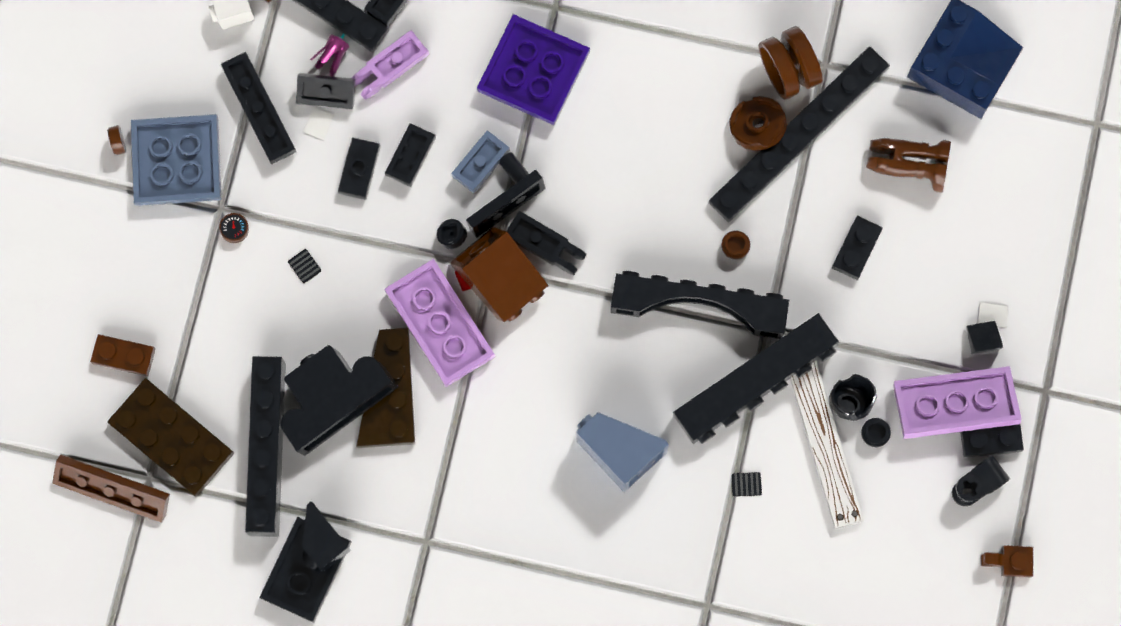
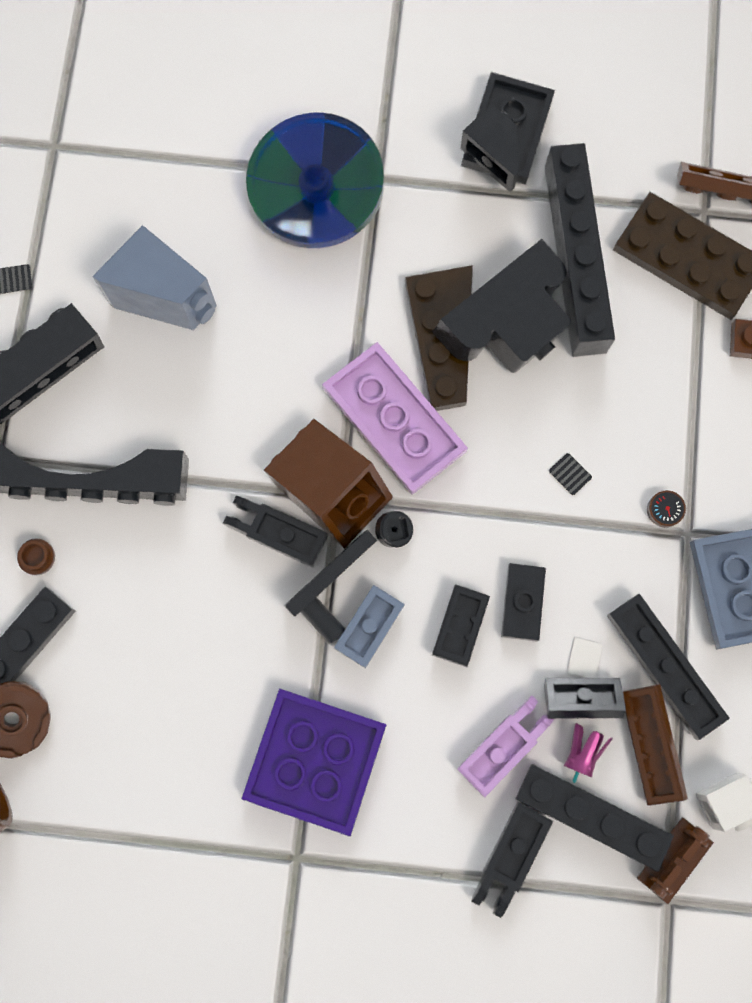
camera: 170 degrees right, 0 degrees up
(280, 53) = (654, 746): none -> reddish brown plate
(479, 531) = (315, 180): none -> dish

